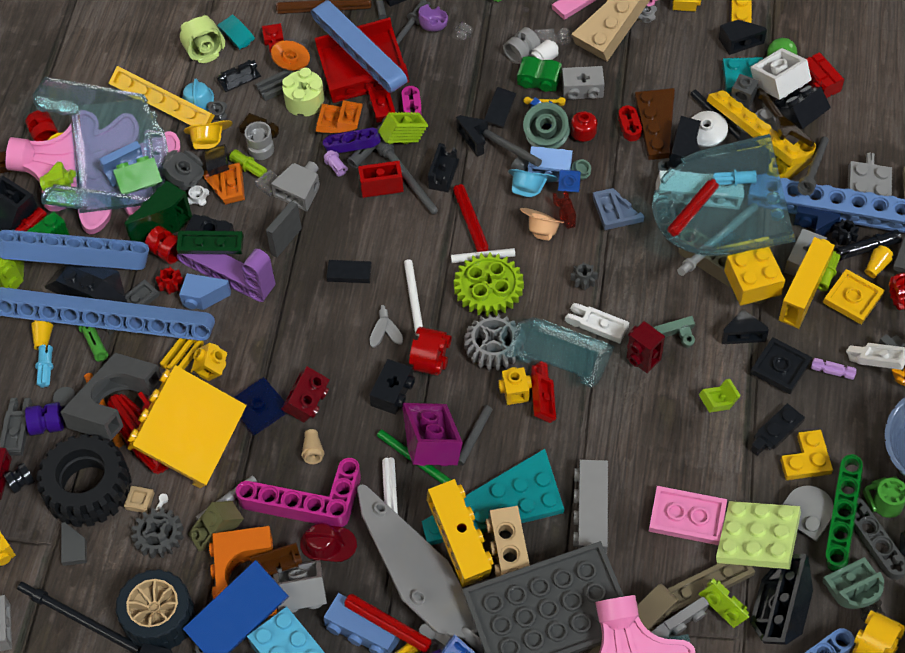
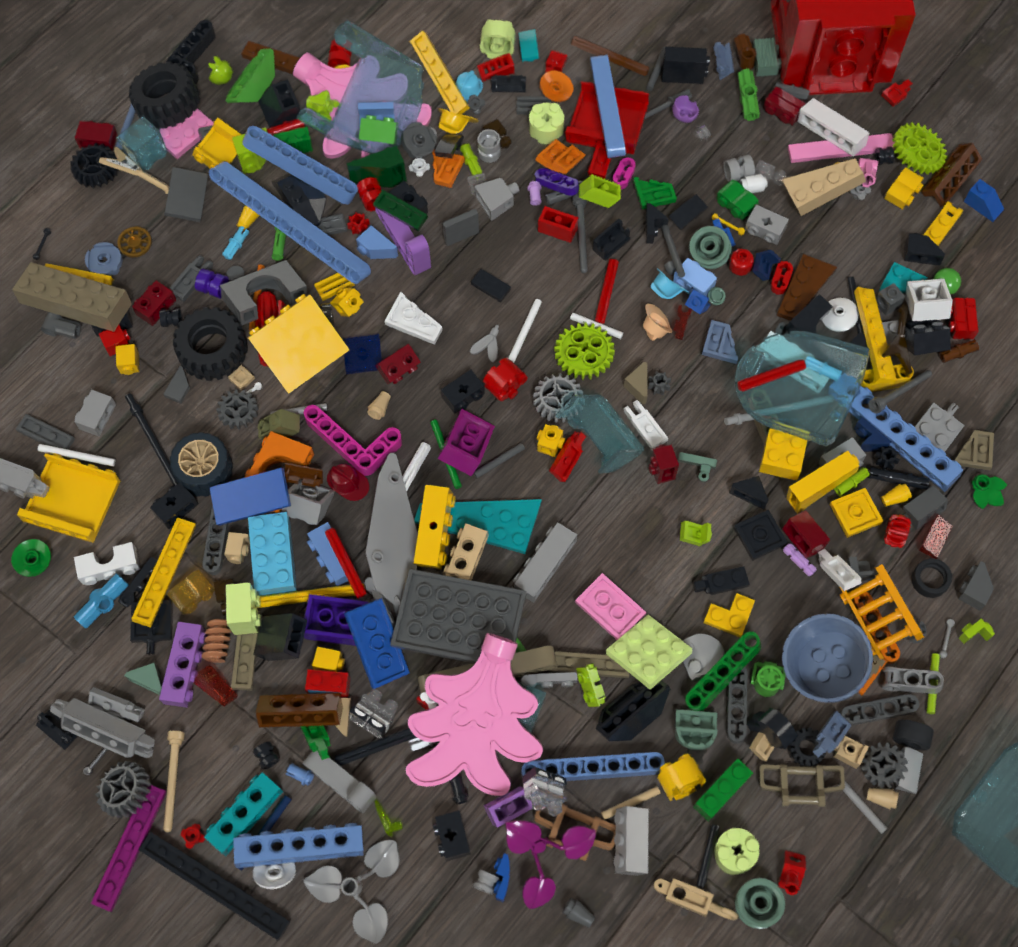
camera: 30 degrees right, 10 degrees up
(221, 56) = (499, 61): none -> red slope
(286, 346) = (411, 320): none -> white wing
(453, 105) = (654, 192): none -> green wing
(564, 288) = (637, 383): none -> dark tan slope
(604, 117) = (764, 262): none -> dark blue bracket
(824, 340) = (806, 534): none -> dark red brick
(838, 106) = (959, 351): none -> reddish brown pin

